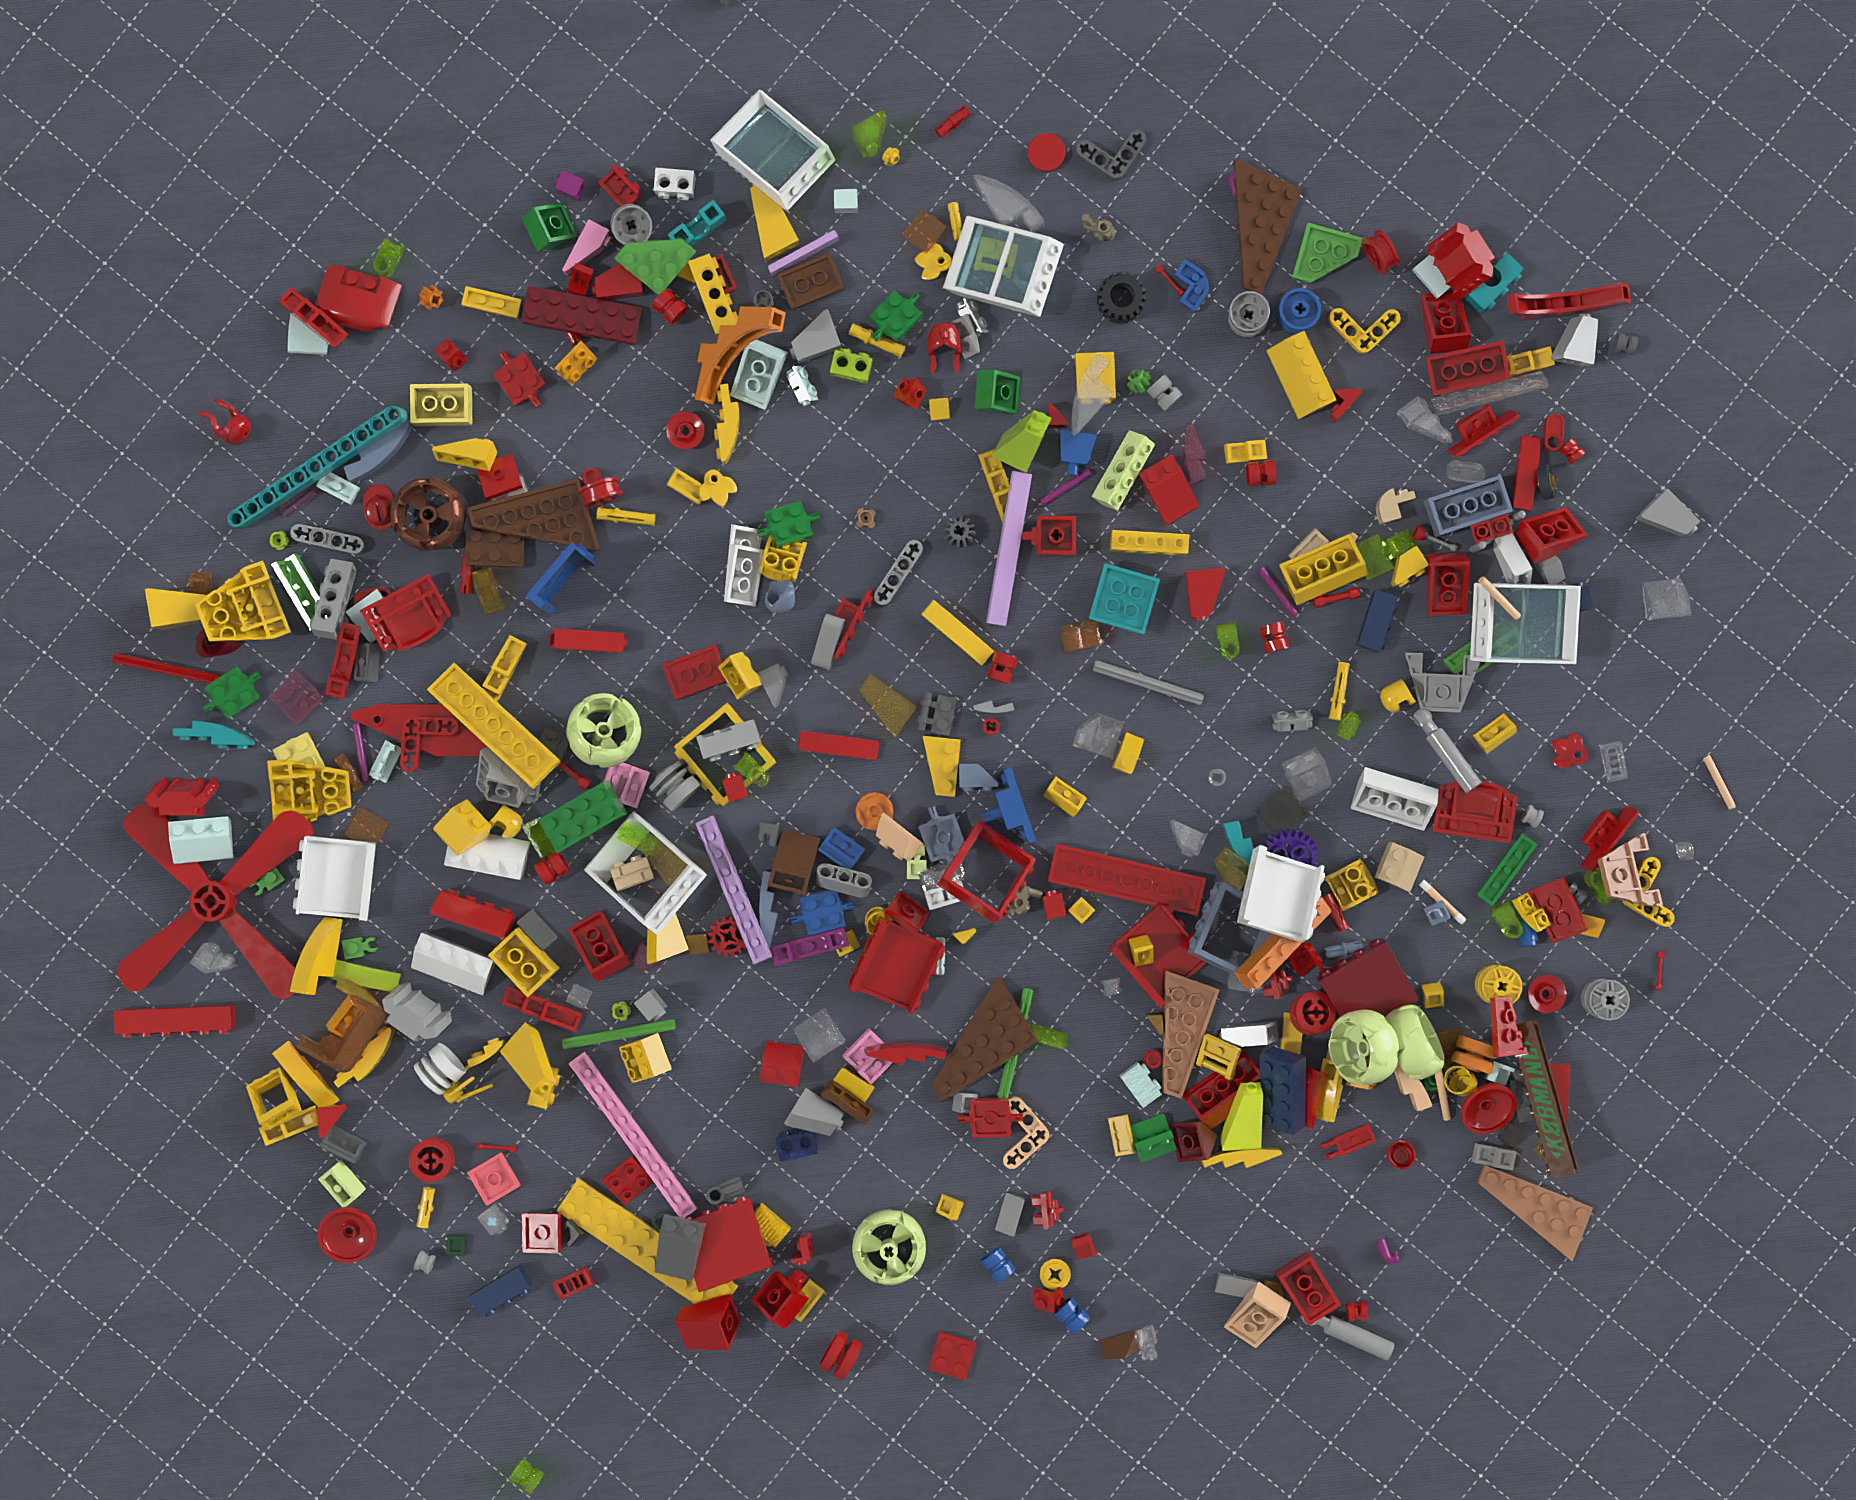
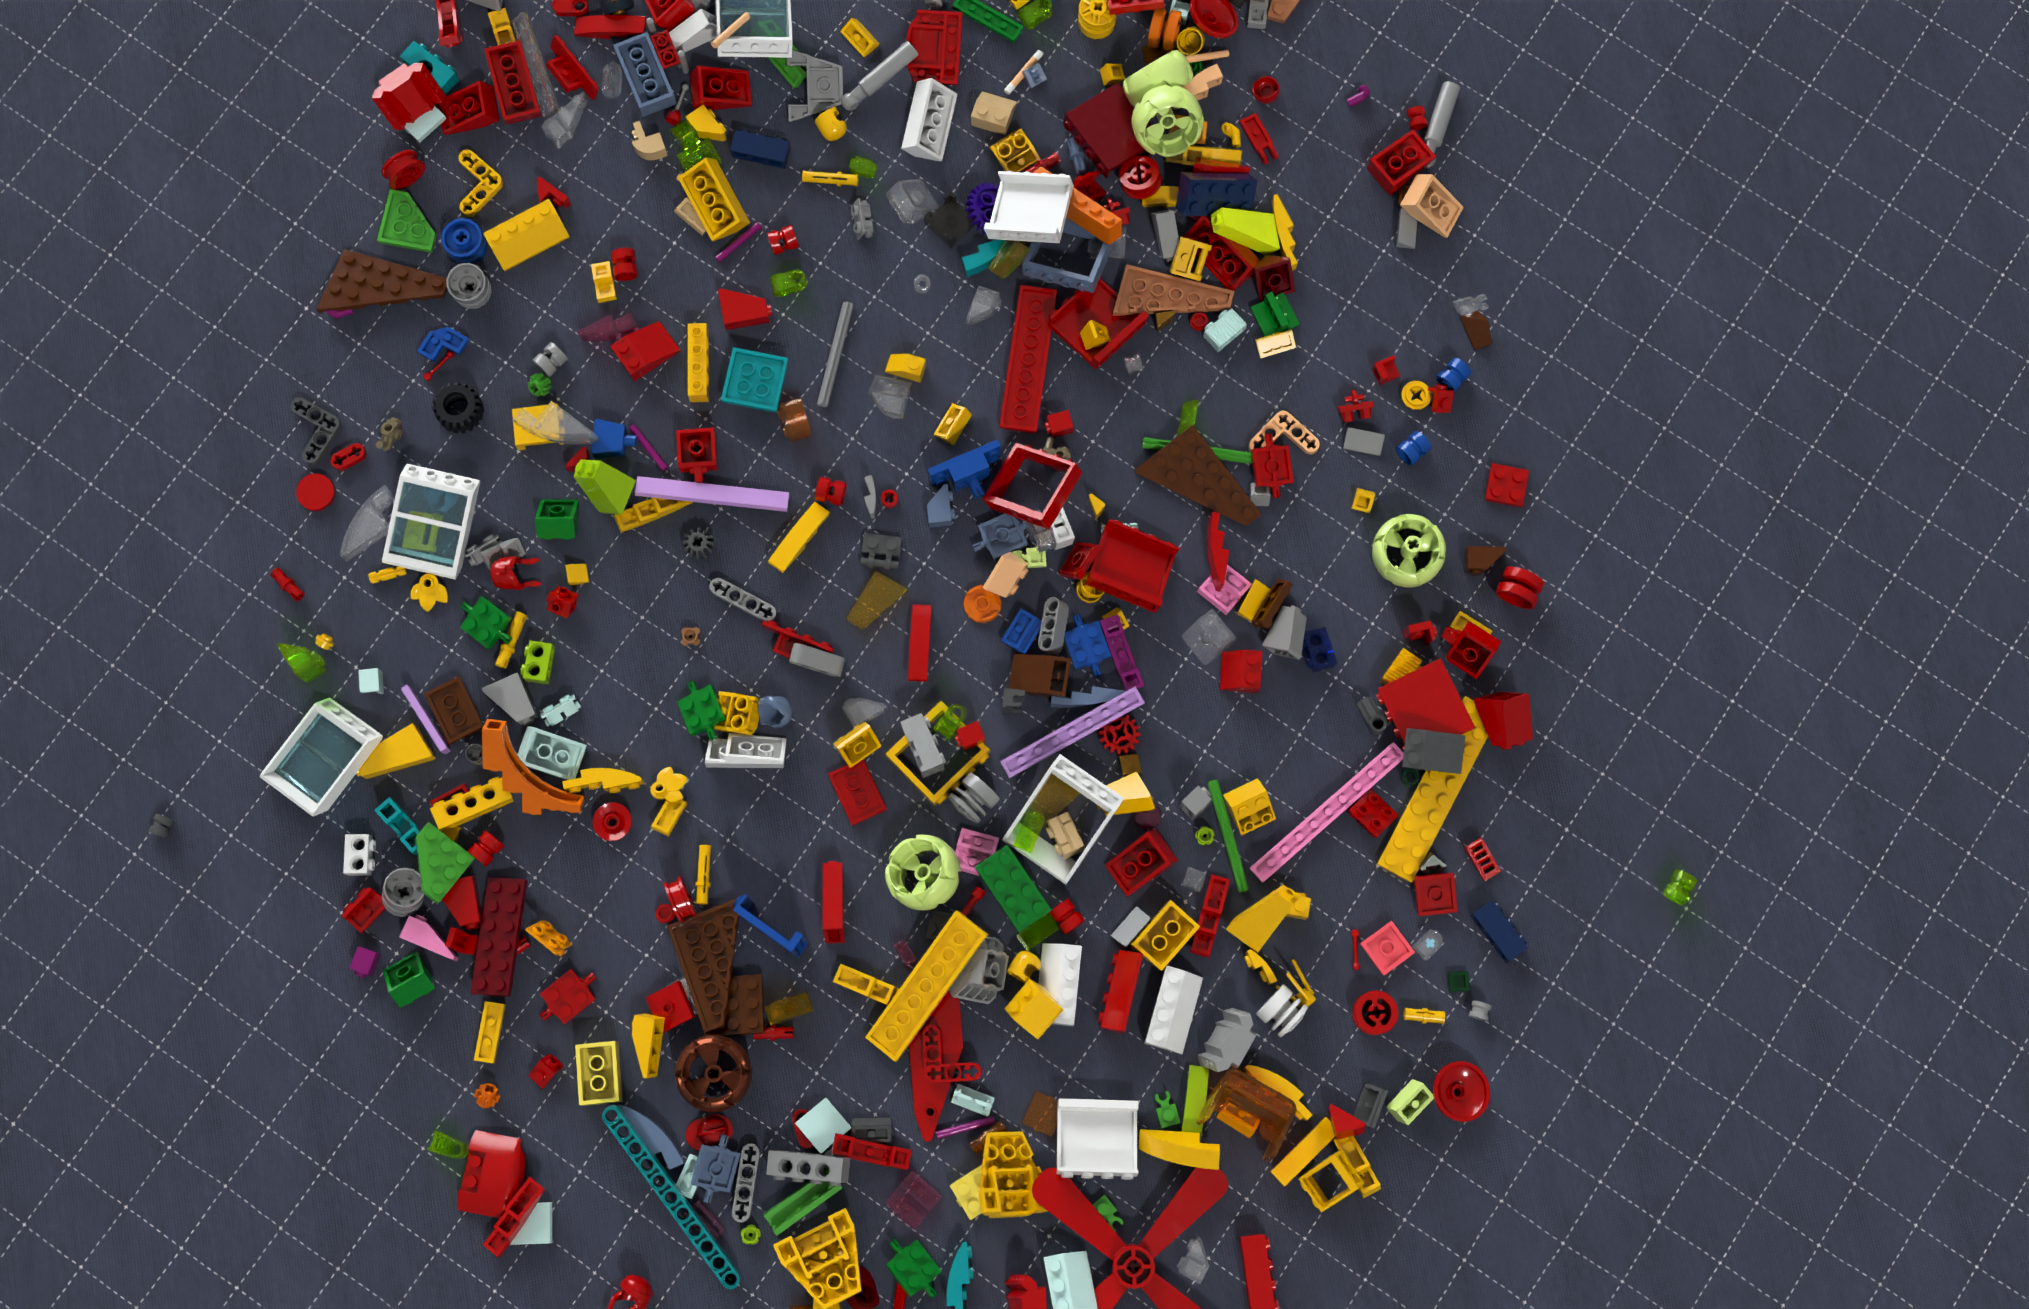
camera: 90 degrees left, 10 degrees down
(341, 510) = (715, 1168): none -> sand blue plate
(407, 615) = (819, 1088): red slope -> none
(531, 707) = (905, 952): none -> clear pink piece
(875, 1320) = (1481, 558): none -> reddish brown slope
(924, 231) = (399, 603): clear orange piece -> none
(943, 763) = (928, 541): yellow wing -> none
(1081, 910) = (1061, 398): yellow plate -> none
(1083, 184) = (347, 456): none -> red beam
(1123, 470) = (628, 391): yellowish green brick -> none
(1351, 594) = (736, 175): red bar -> none
(1356, 1116) = (1232, 132): none -> yellow arm

